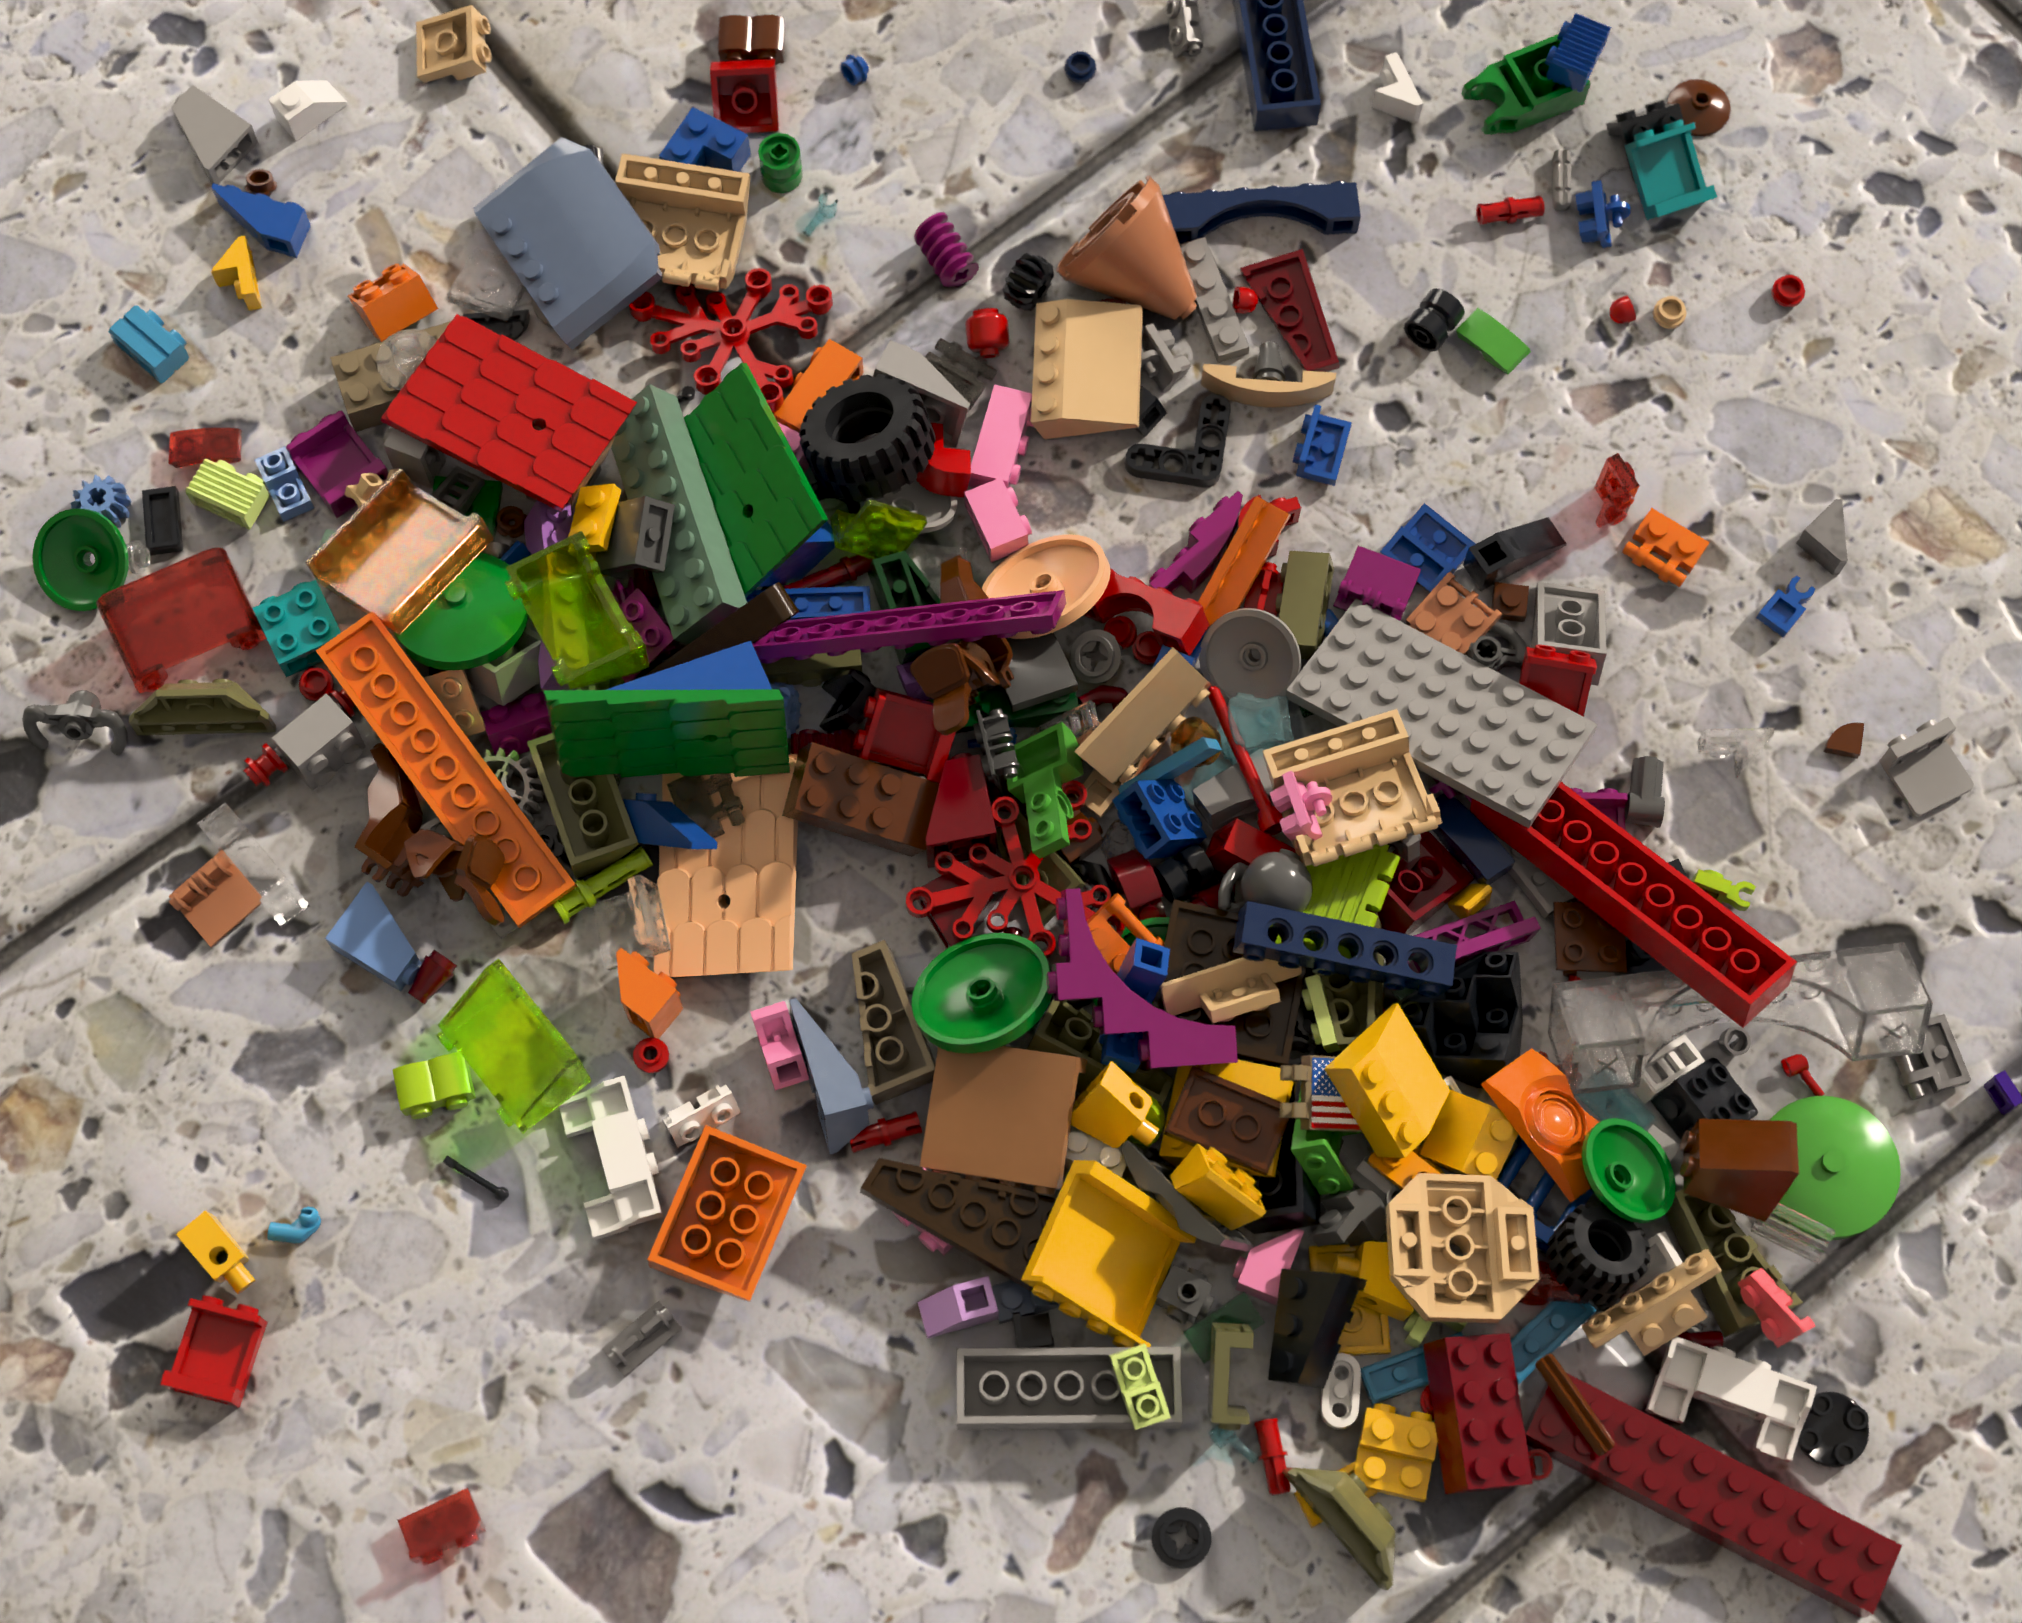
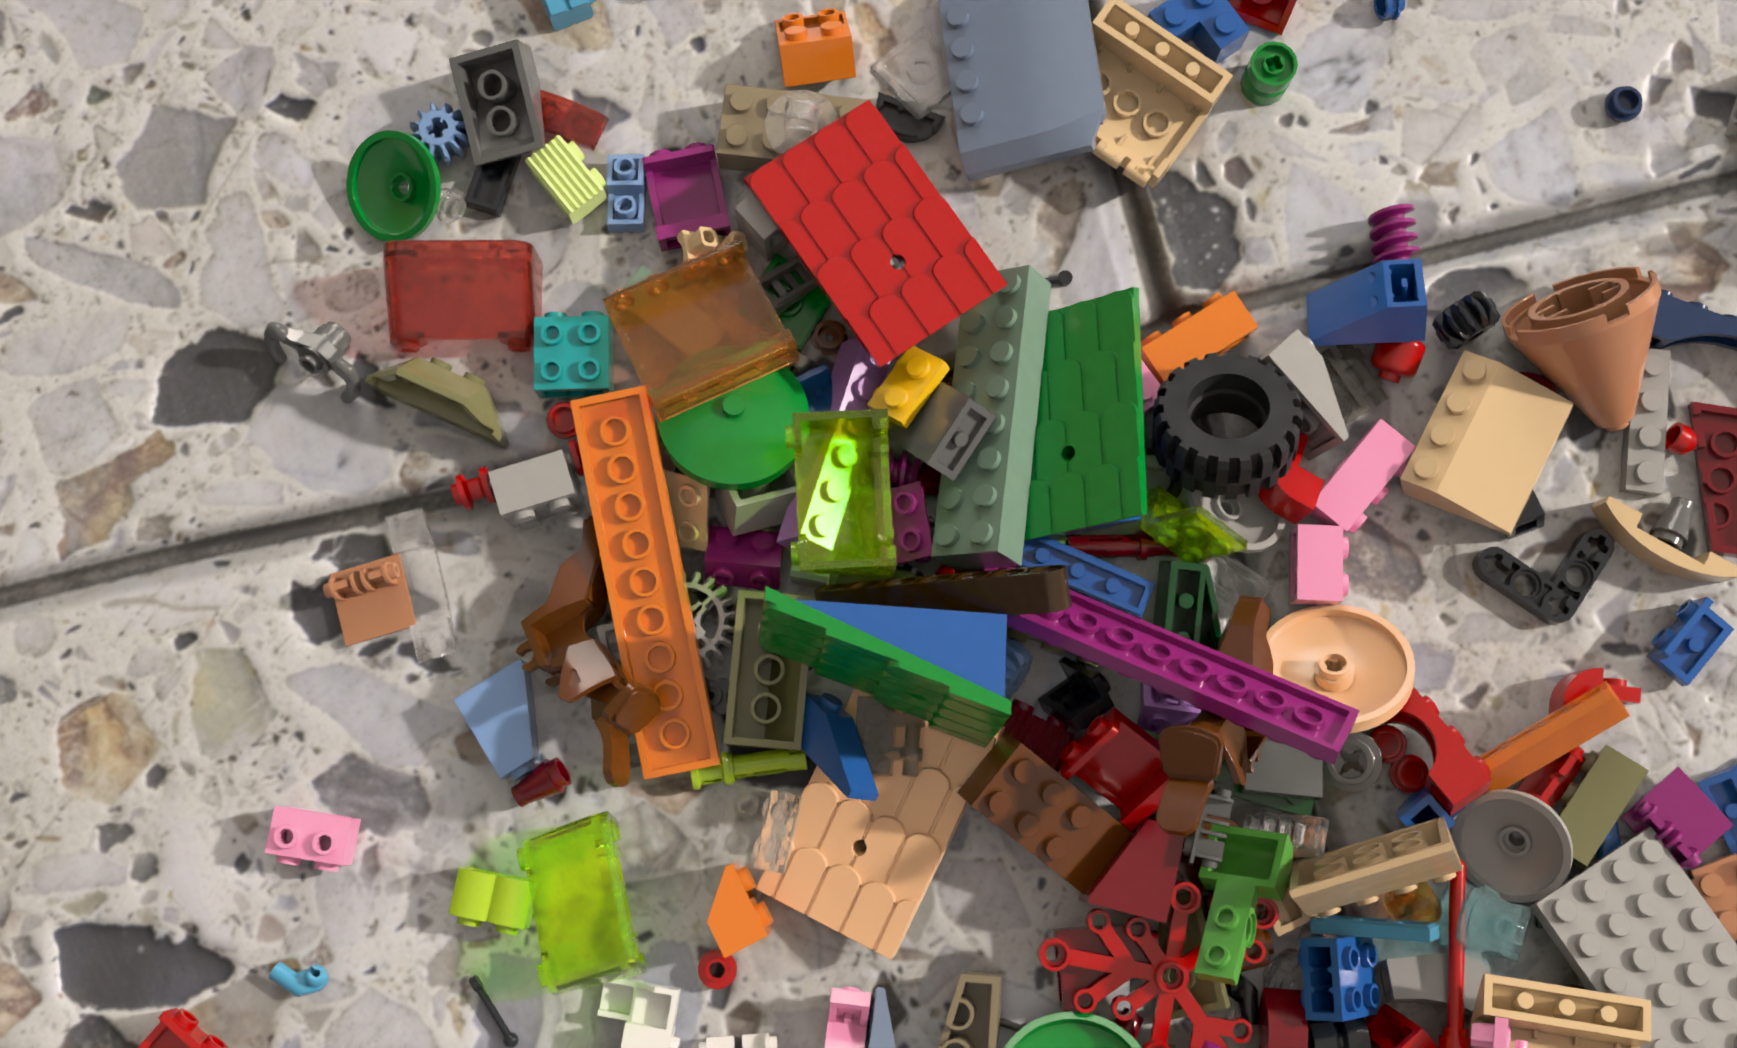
camera: 25 degrees right, 10 degrees up
(141, 453) = (499, 101): none -> dark grey slope
(205, 1240) = (210, 972): yellow torso -> none
(253, 1107) = (312, 836): none -> bright pink brick
(734, 331) = (1106, 208): red plant -> none
(824, 211) = (1287, 144): clear light blue hand -> none
(945, 302) = (1371, 306): none -> blue slope
(1104, 694) = (1345, 805): dark red arm -> none
(1158, 360) = (1563, 465): light grey hips -> none
(1205, 549) = (1517, 695): magenta slope -> none

